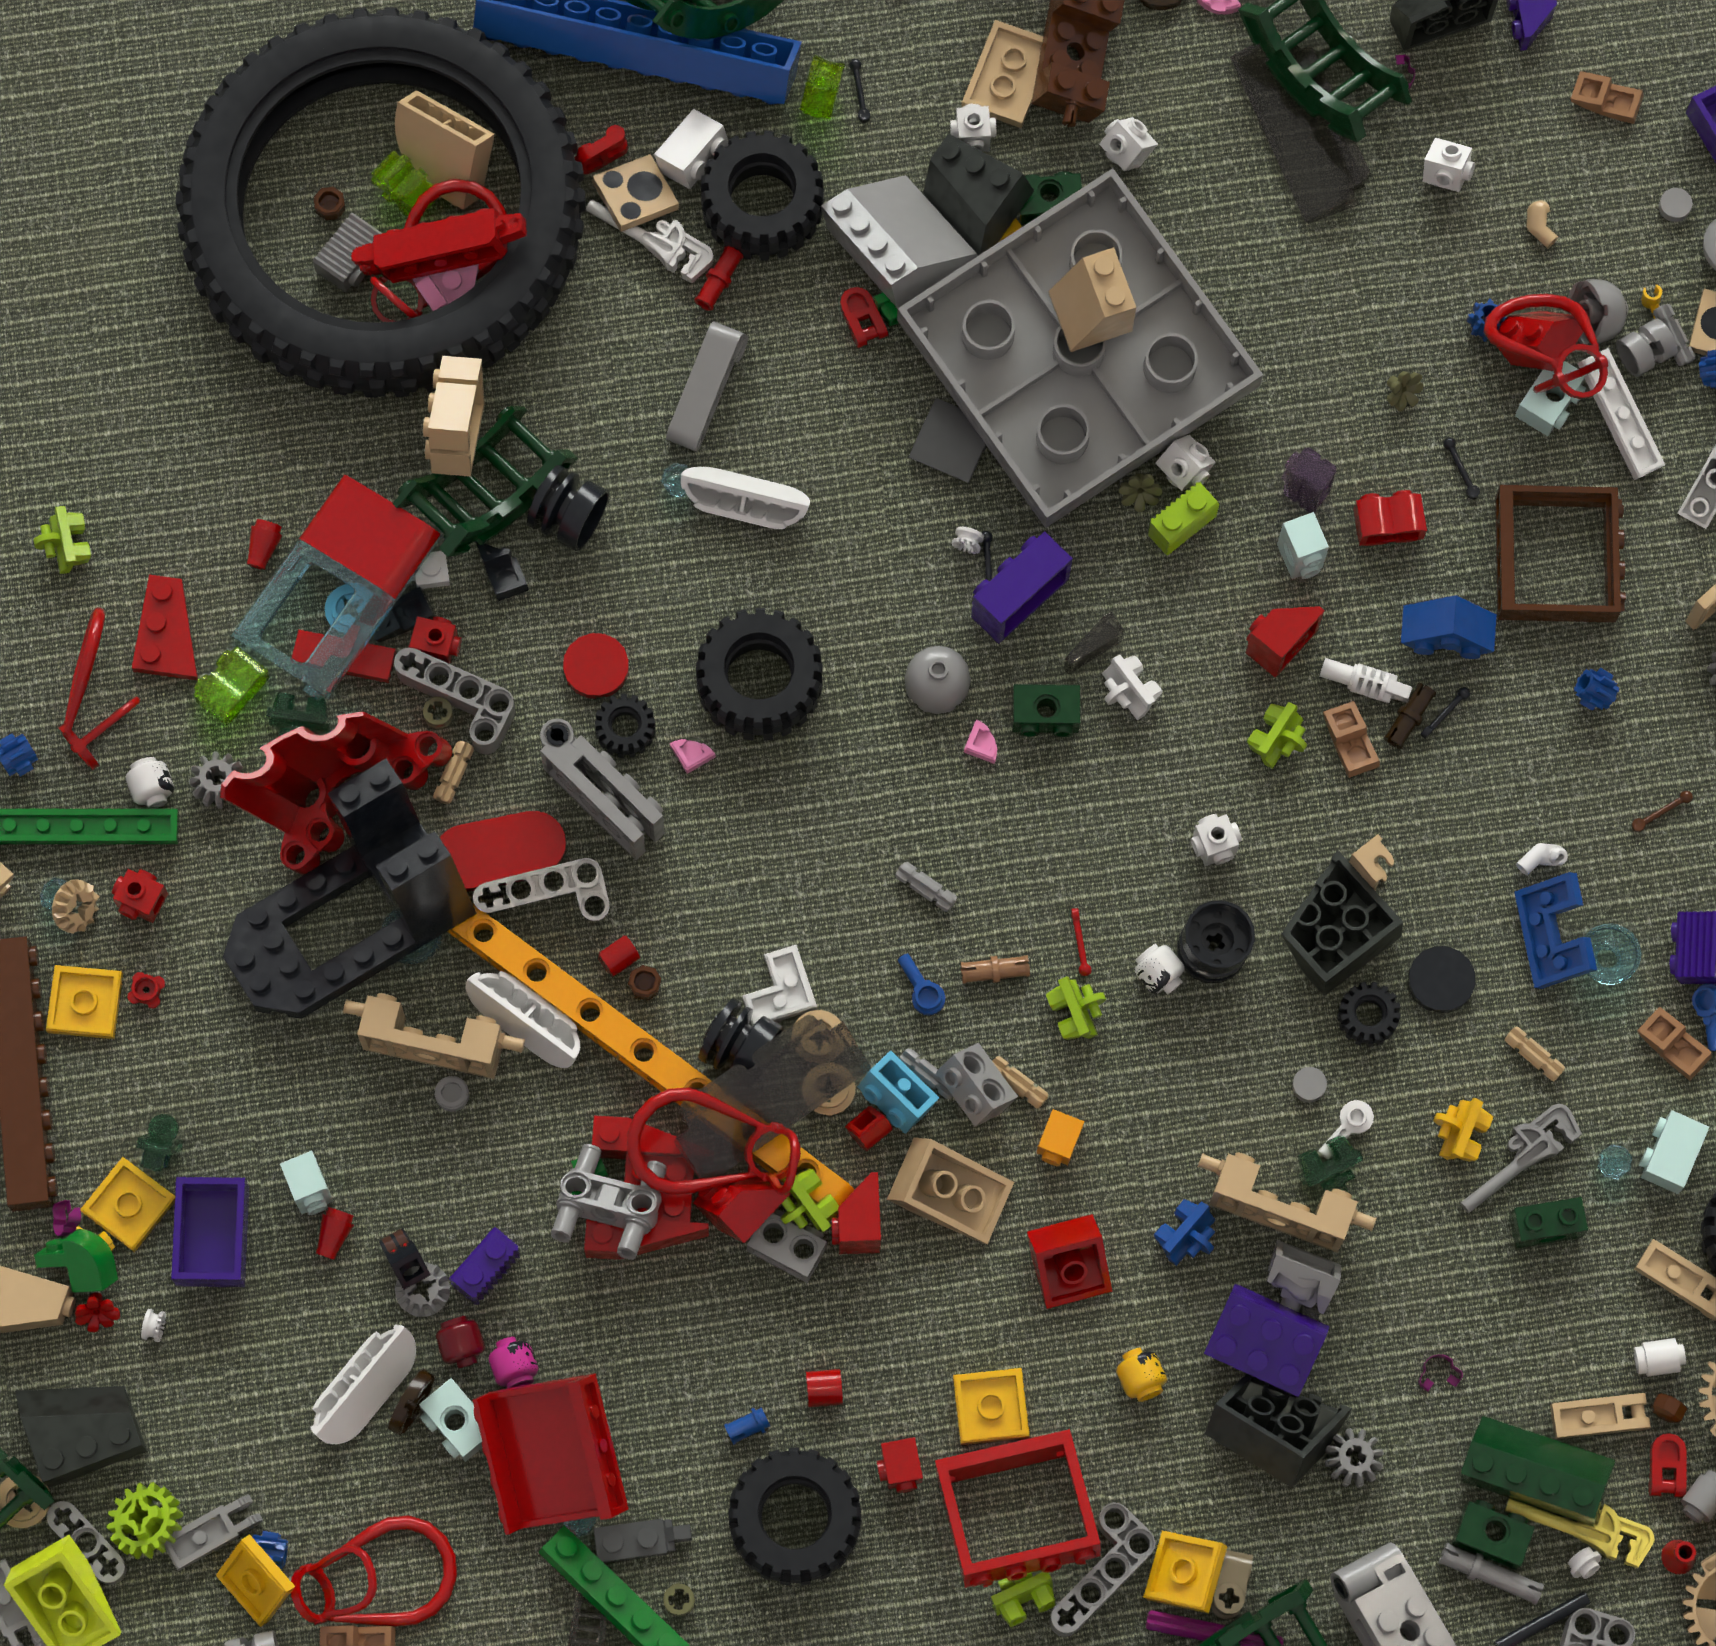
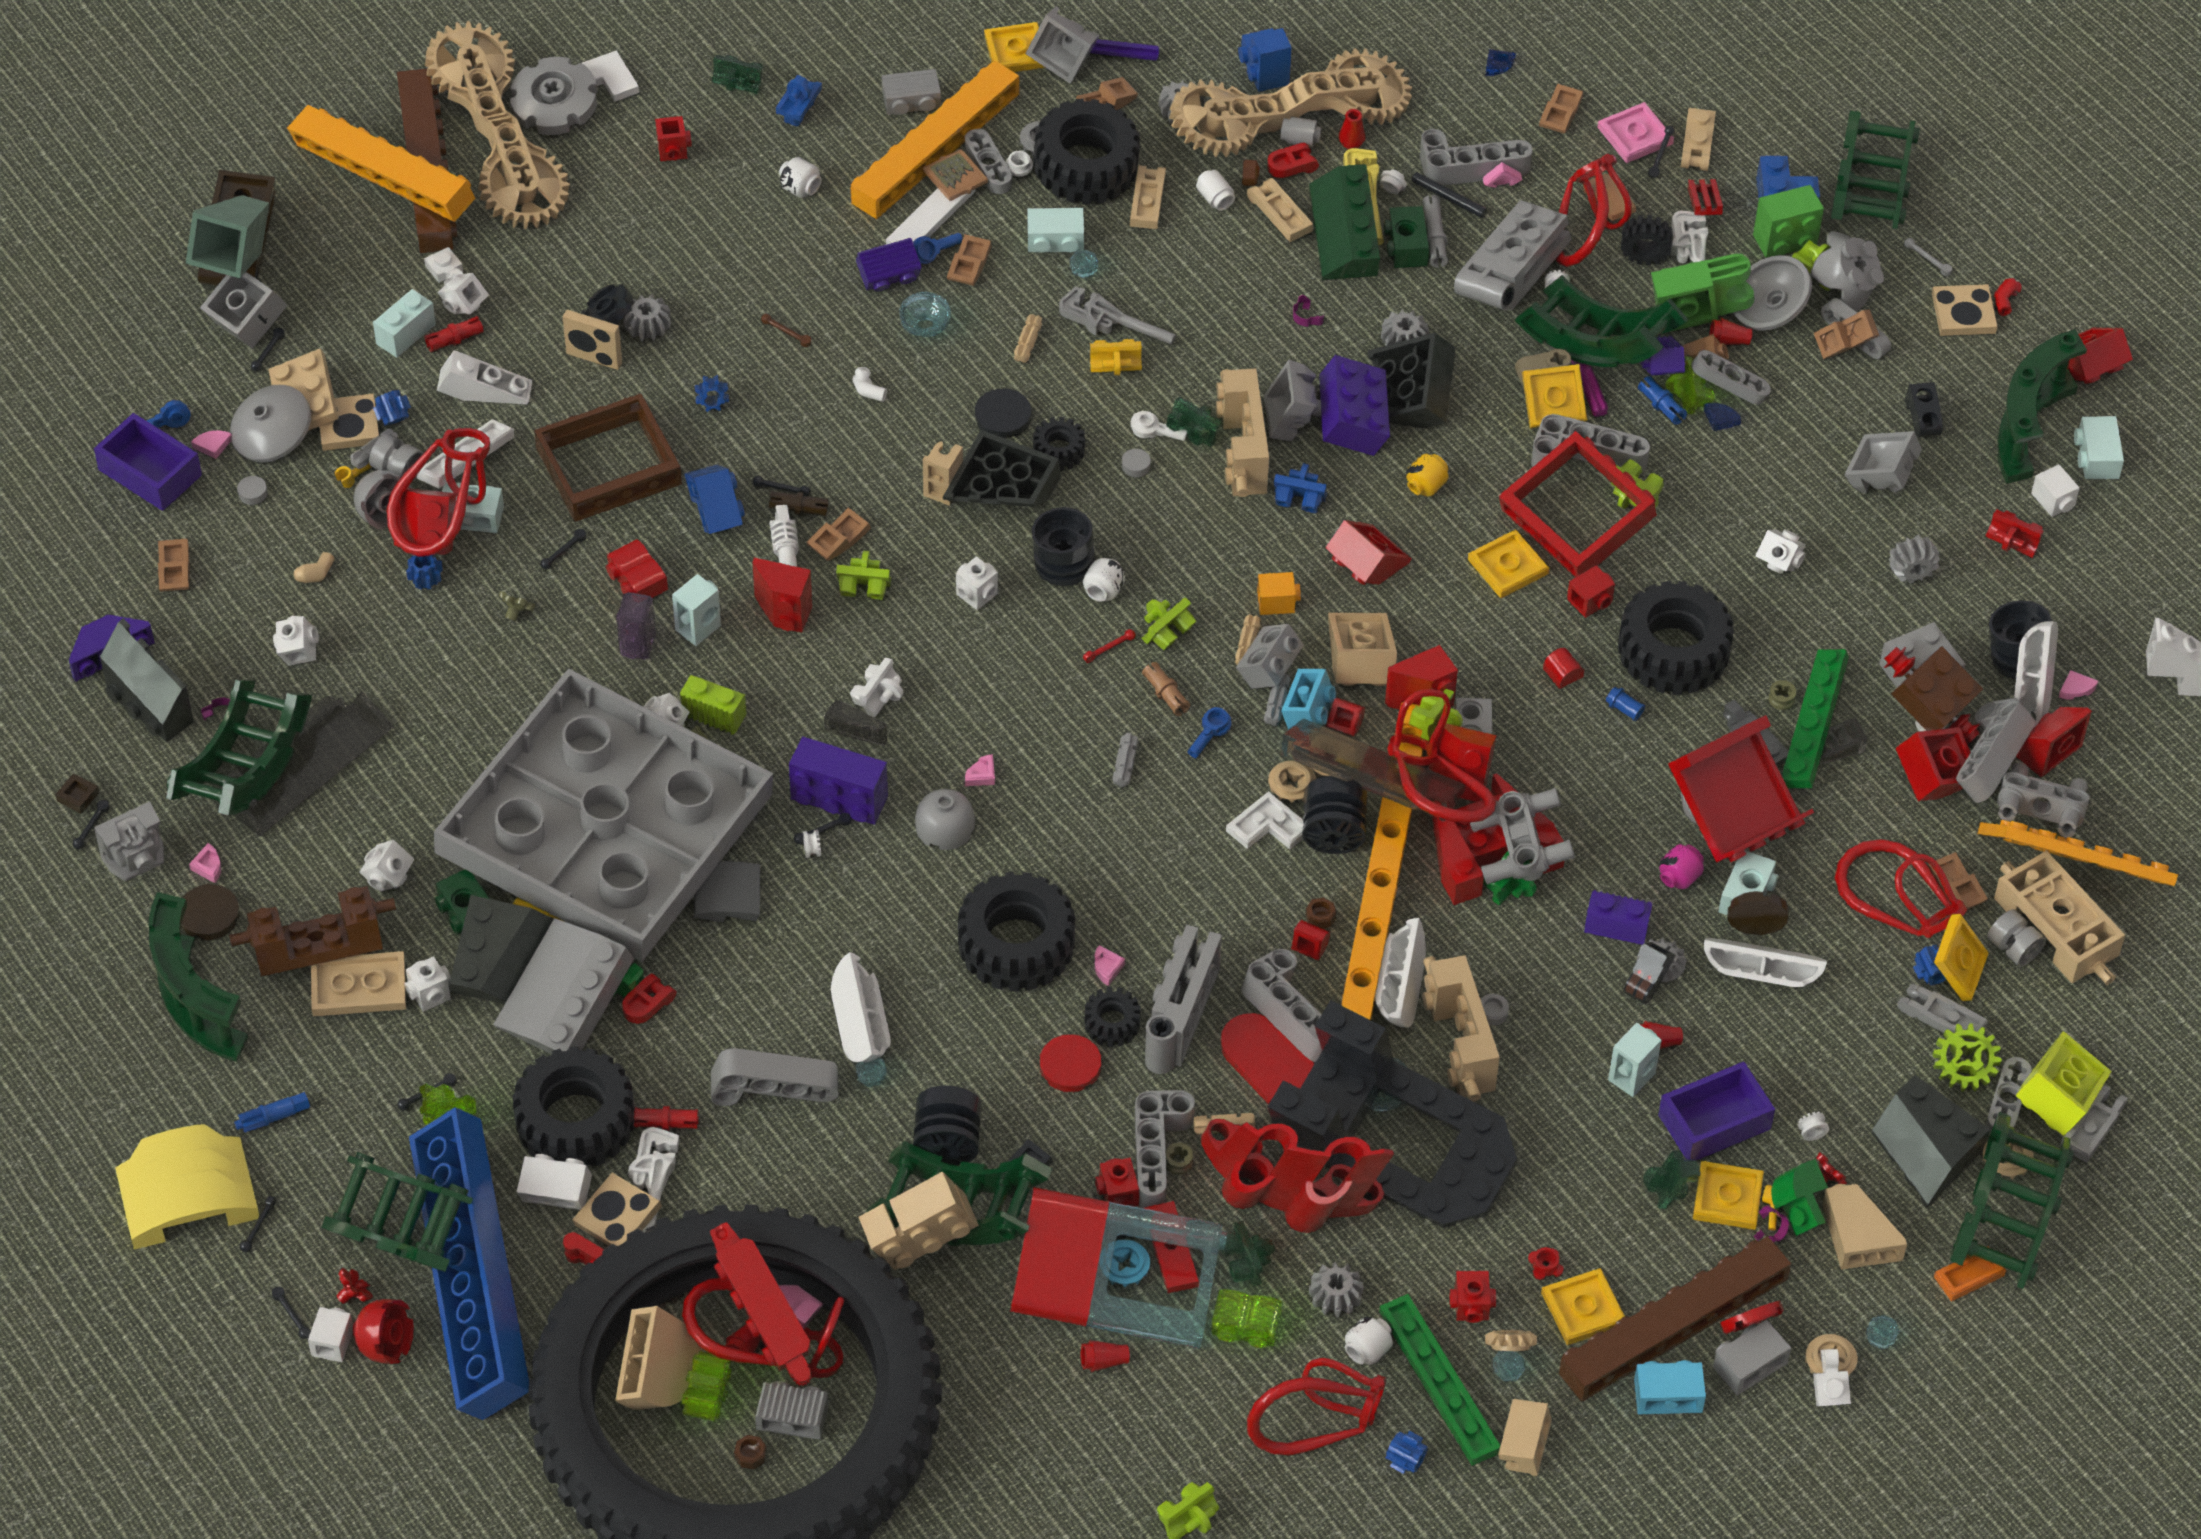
camera: 115 degrees left, 20 degrees down
(164, 631) = (1222, 1398): red wing -> none
(460, 1342) = (1687, 909): dark red head -> none
(1061, 698) = (930, 734): dark green brick -> none
(1094, 301) = (572, 782): tan slope -> none
(1547, 956) = (914, 368): blue plate -> none
(1548, 1222) = (1156, 281): dark green brick -> none

